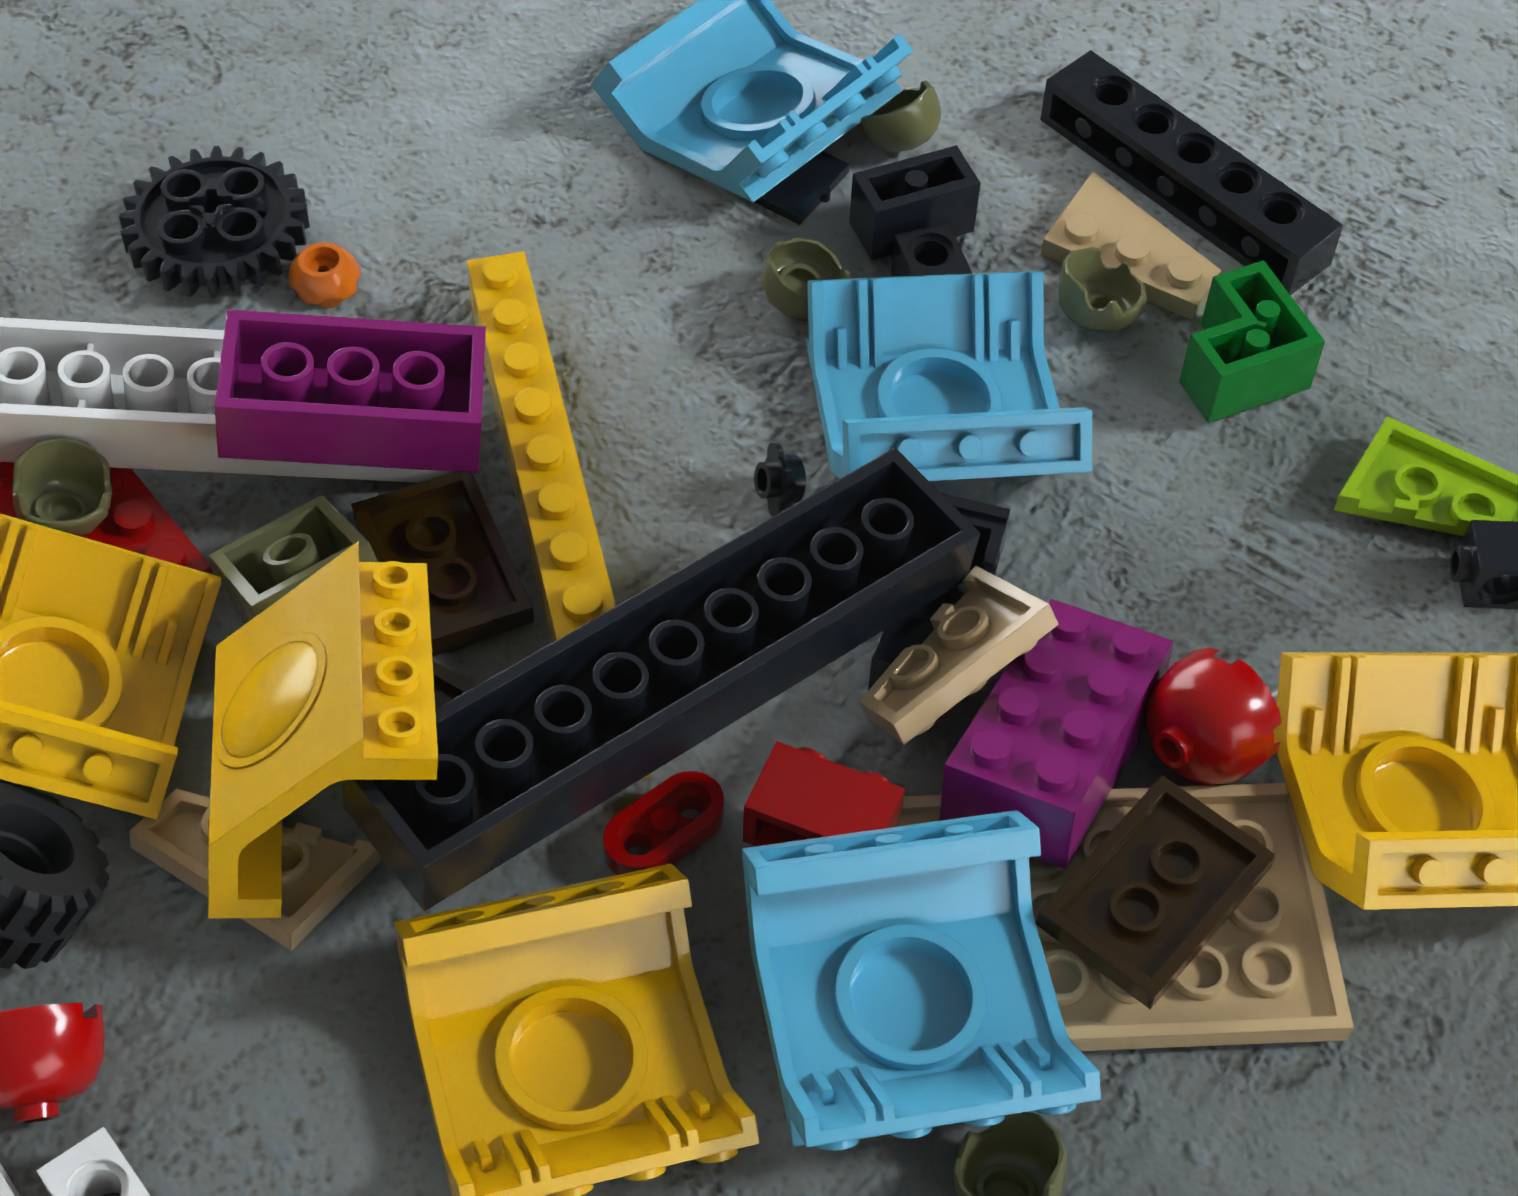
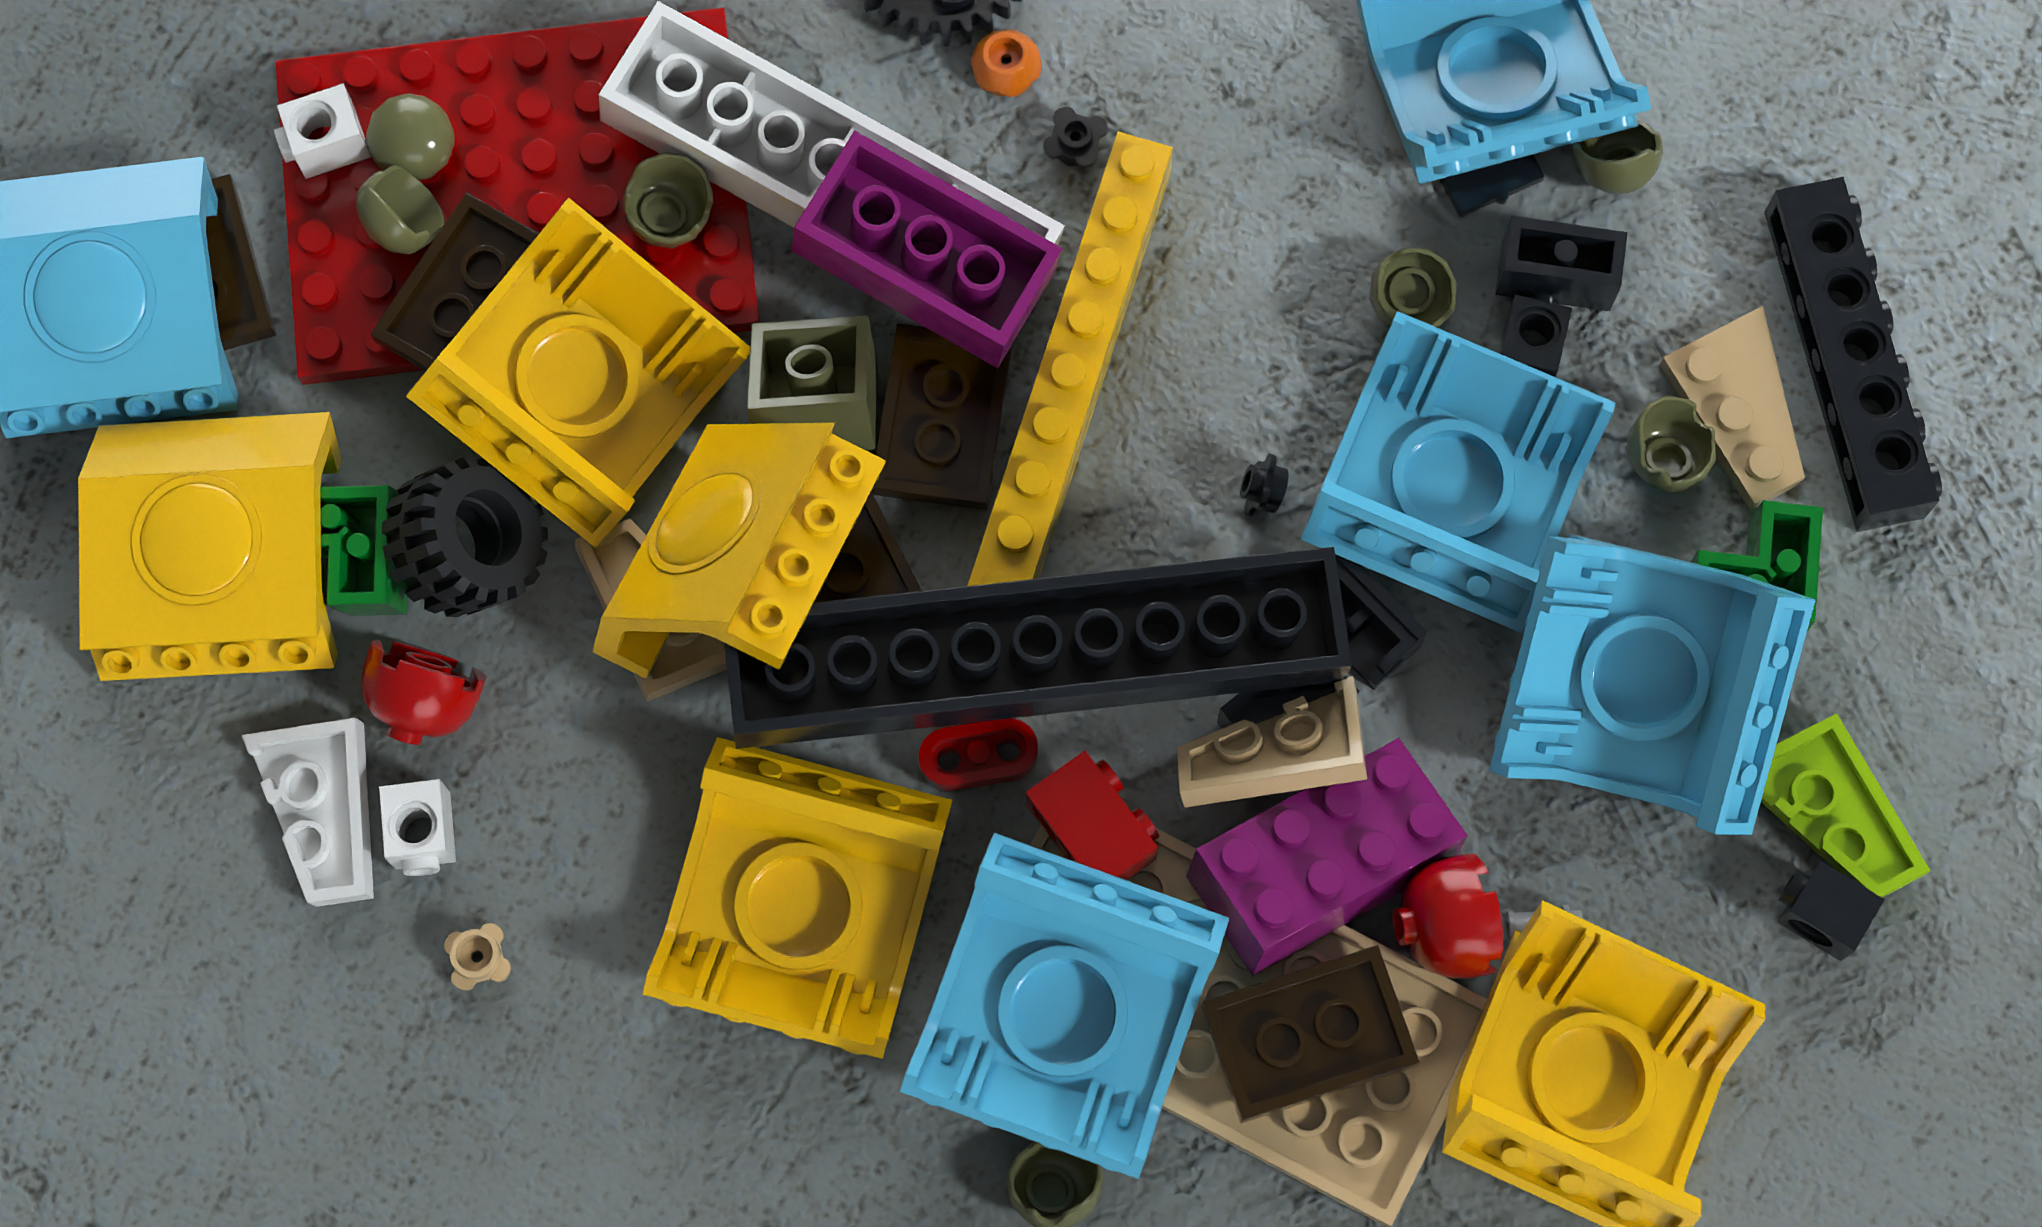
camera: 35 degrees right, 20 degrees up
(426, 300) = (1075, 153): none -> black plate
(1236, 447) = (1652, 680): none -> medium azure panel

